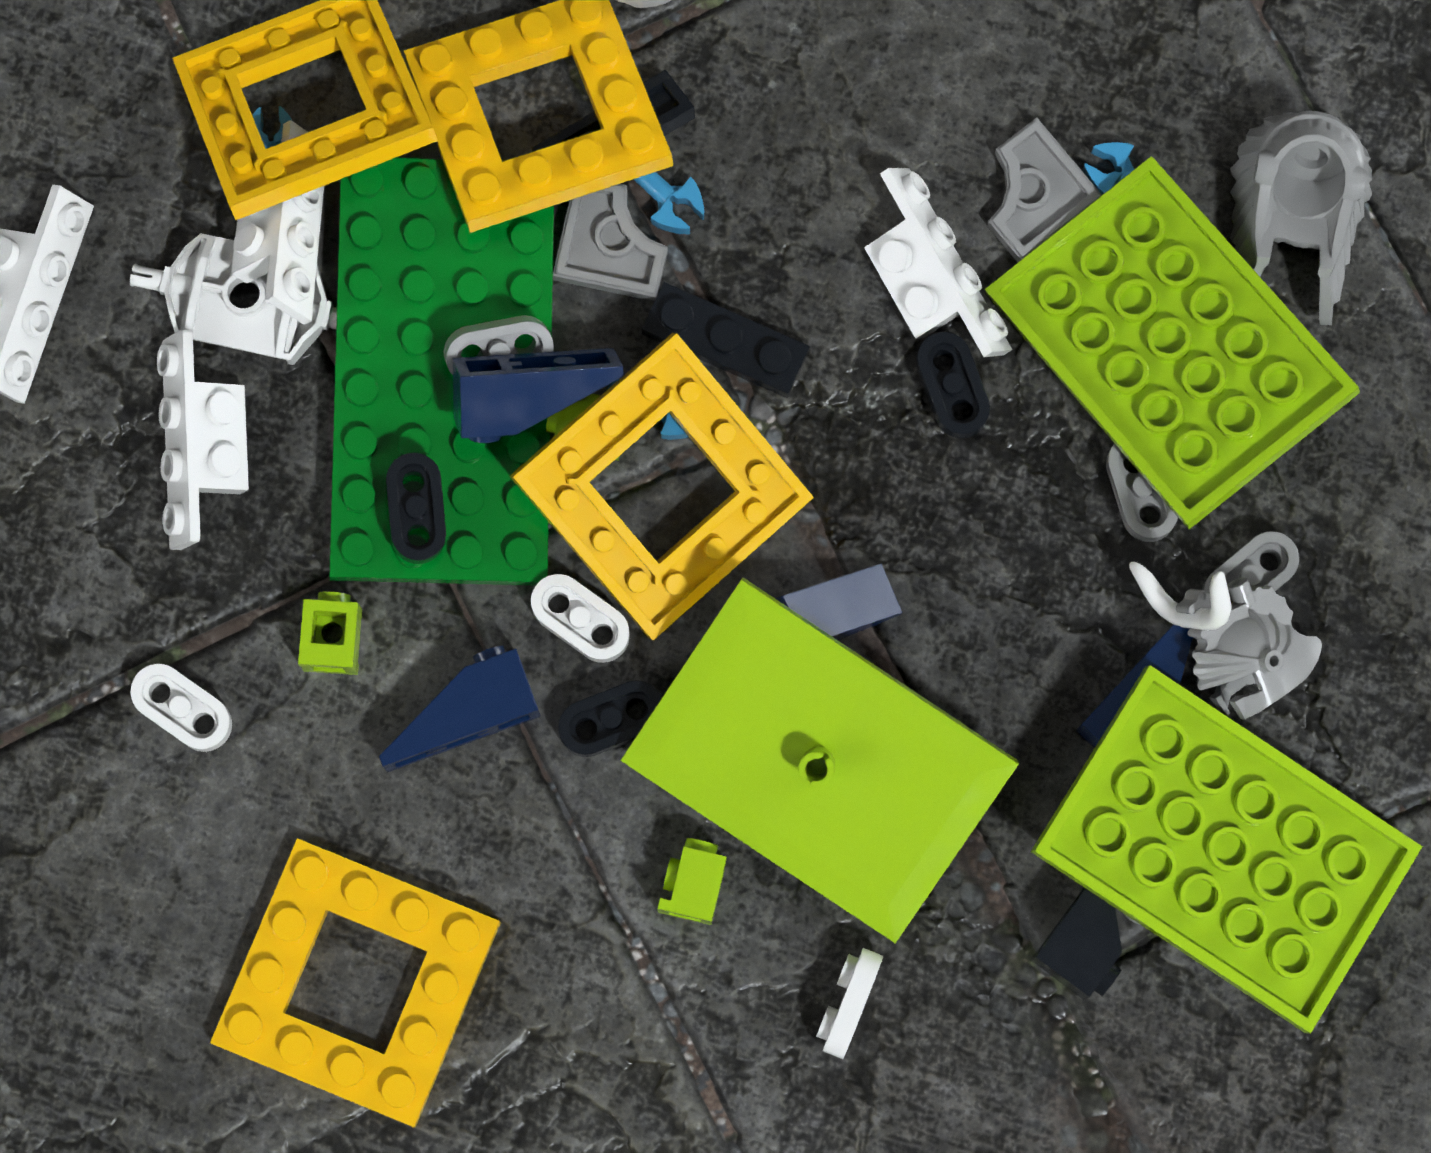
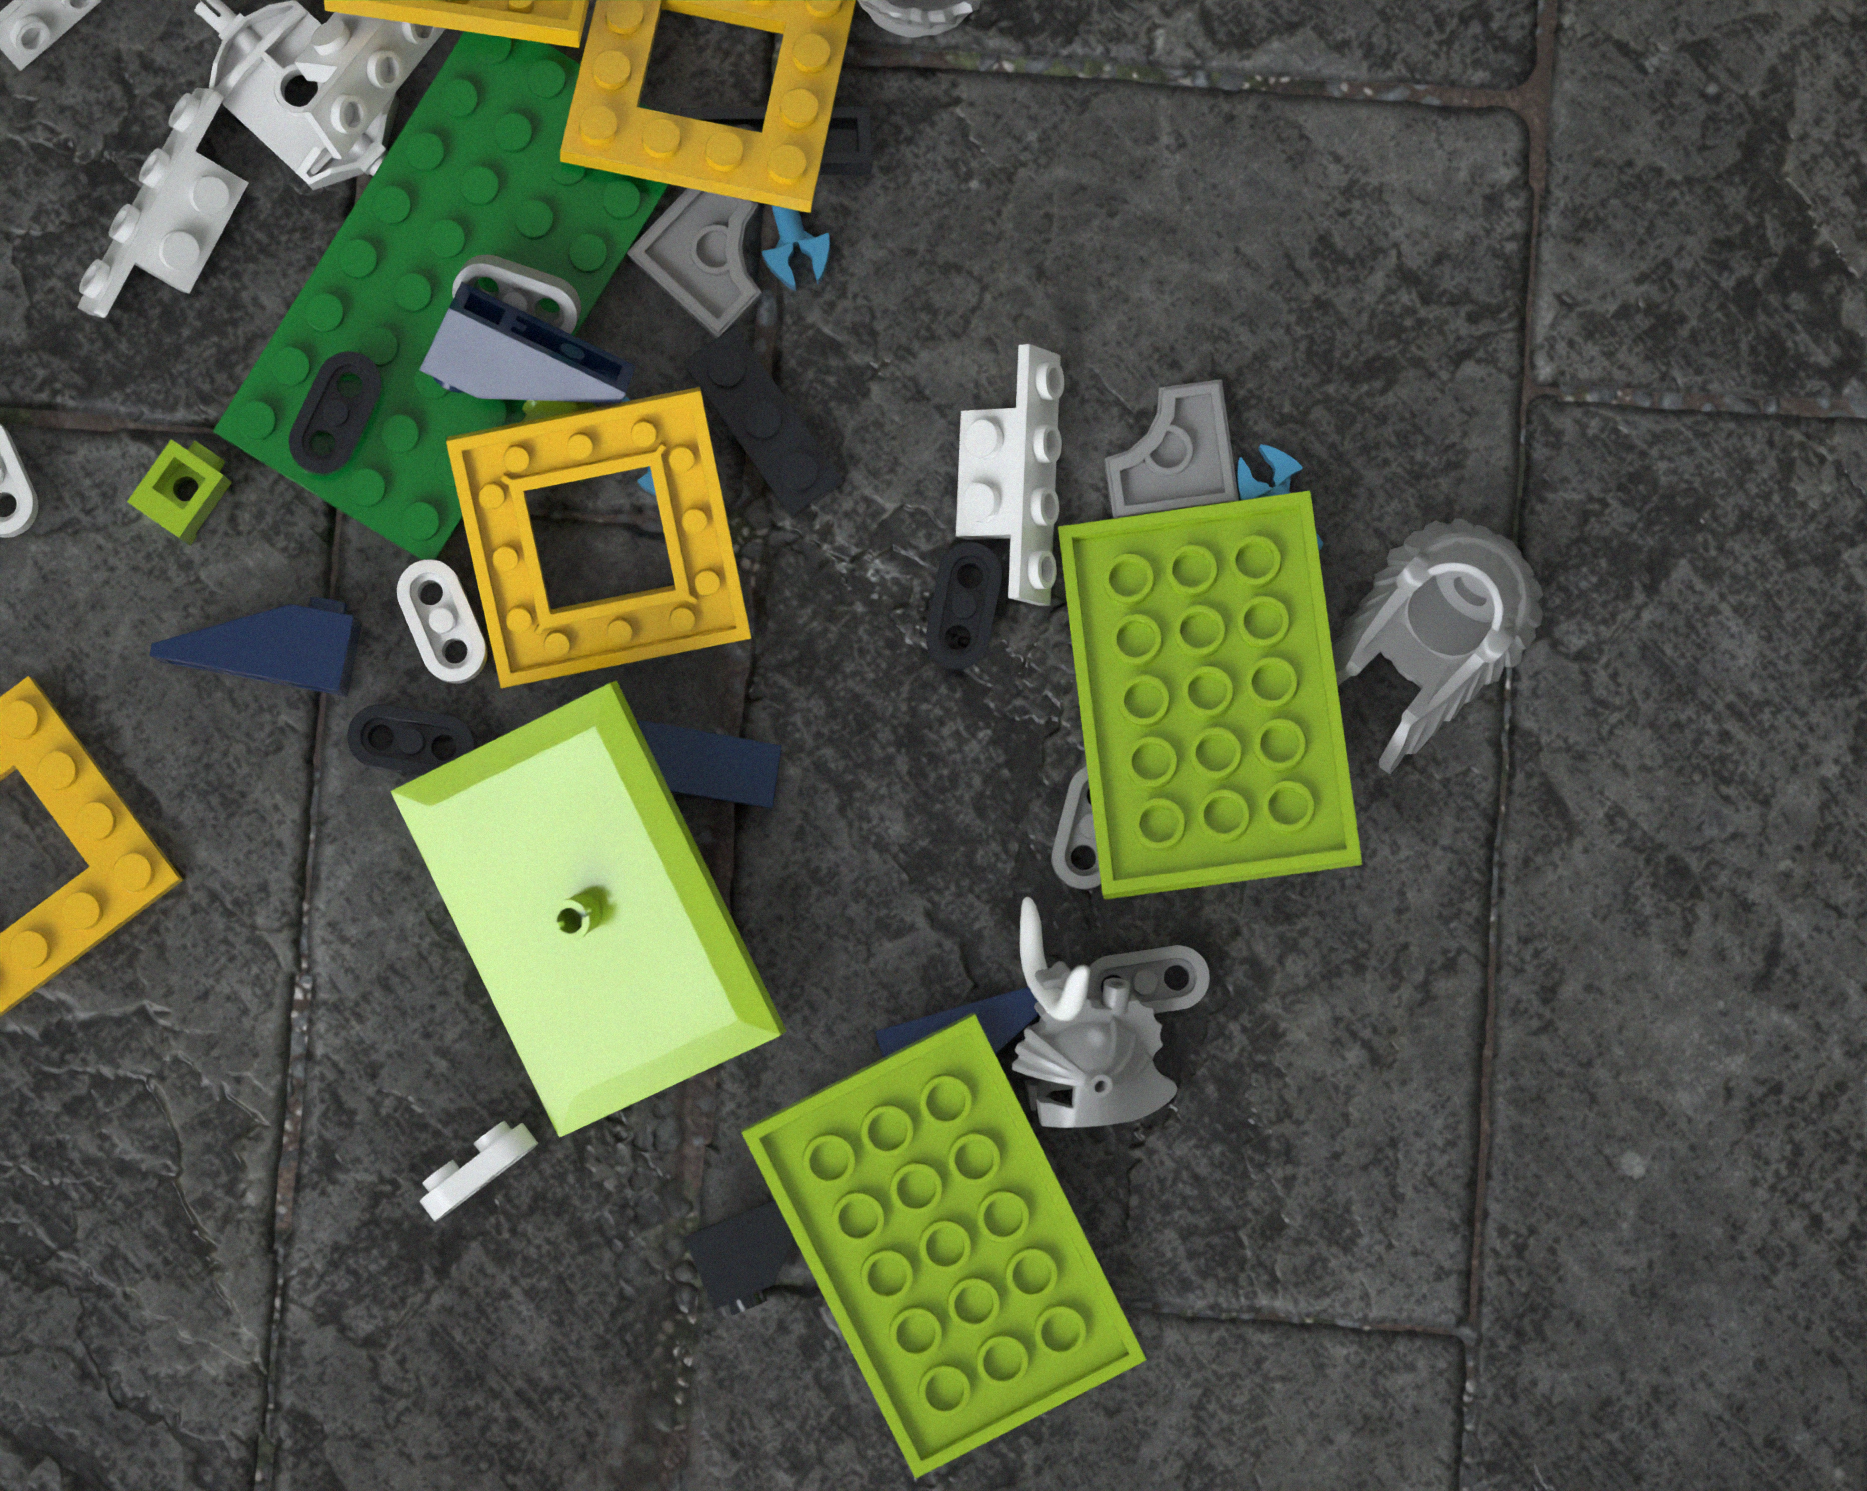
camera: 30 degrees right, 5 degrees up
(694, 882) = (394, 957): lime brick -> none

